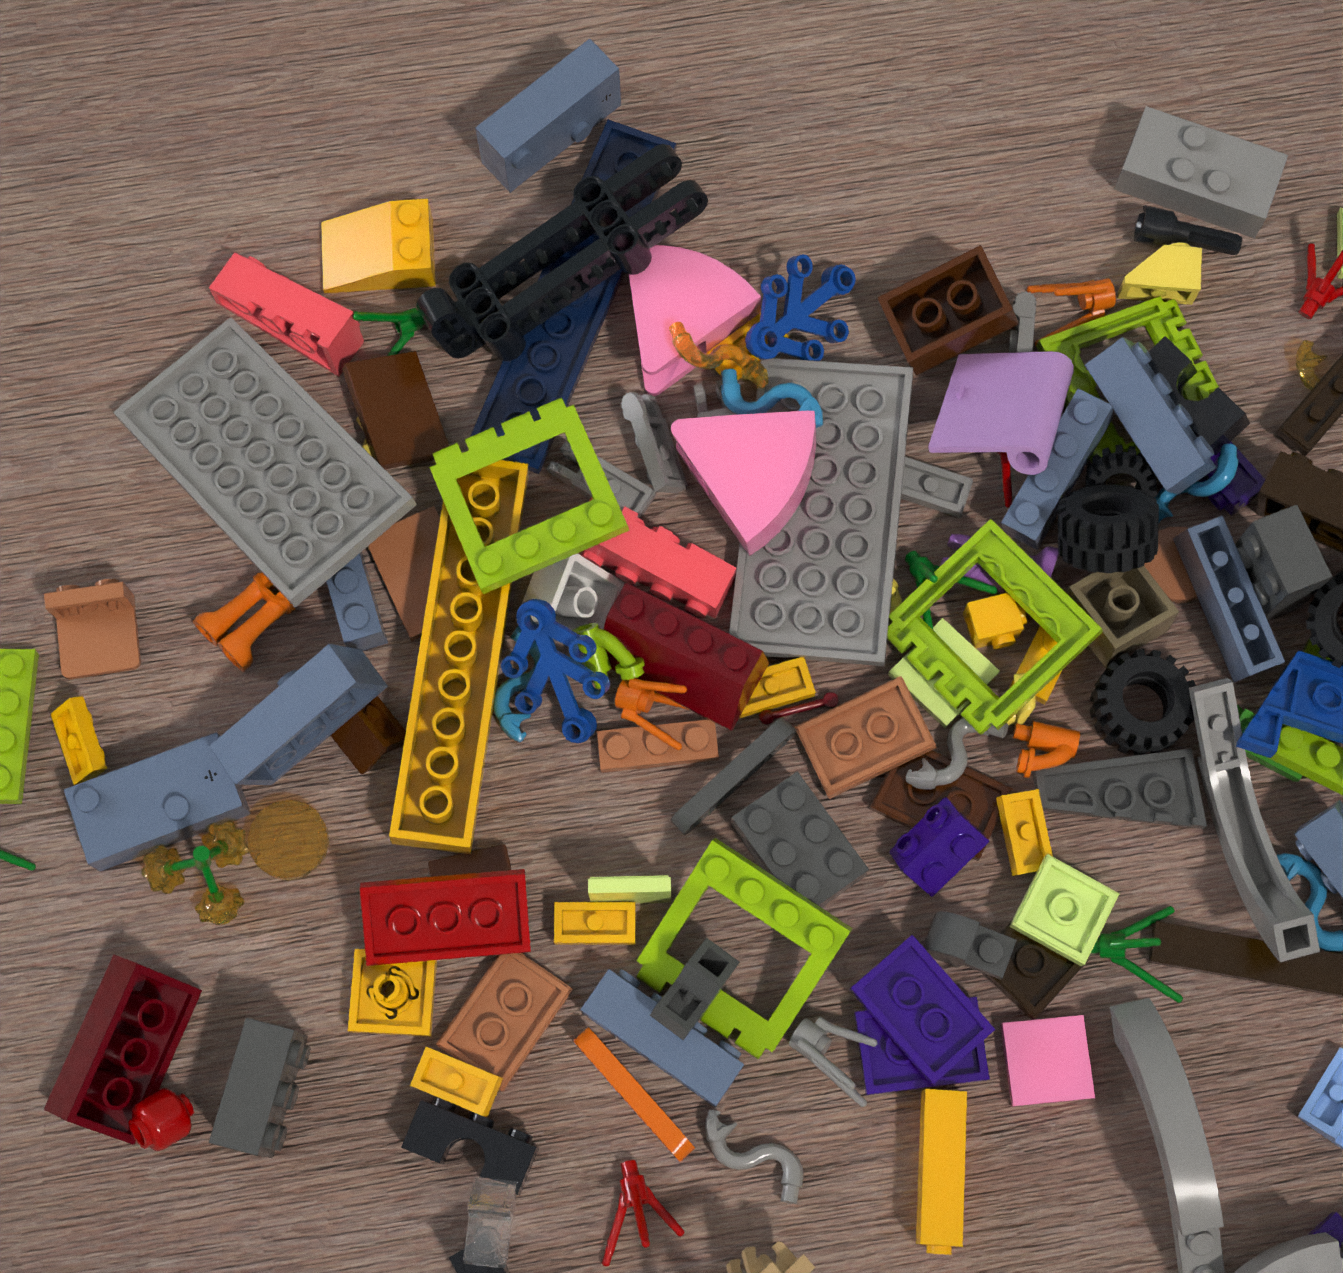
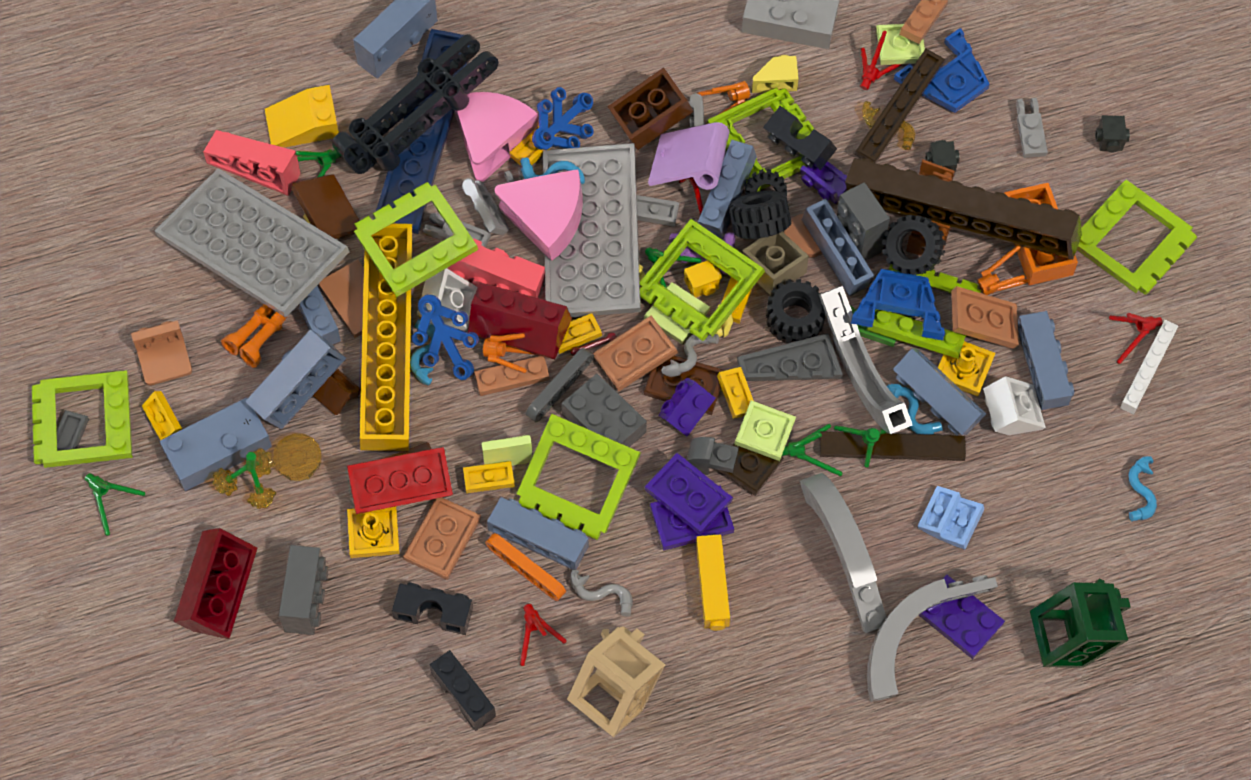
camera: 10 degrees left, 10 degrees down
(161, 1119) = (245, 618): red head -> none
(456, 1082) = (420, 572): yellow plate -> none
(490, 1222) = (450, 640): clear slope -> none
(628, 665) = (488, 328): lime plant -> none
(686, 348) = (496, 144): clear yellow animal -> none
(695, 989) = (554, 497): dark grey brick -> none
(812, 1042) = (628, 524): light grey plant -> none
(1047, 1060) = (767, 517): bright pink tile -> none
(1057, 741) = (742, 343): orange plant -> none
(1151, 416) = (777, 150): sand blue brick -> none
(1161, 228) = (771, 47): black piece -> none
(1225, 472) = (825, 175): dark azure animal -> none
(1240, 953) = (869, 437): none -> green plant

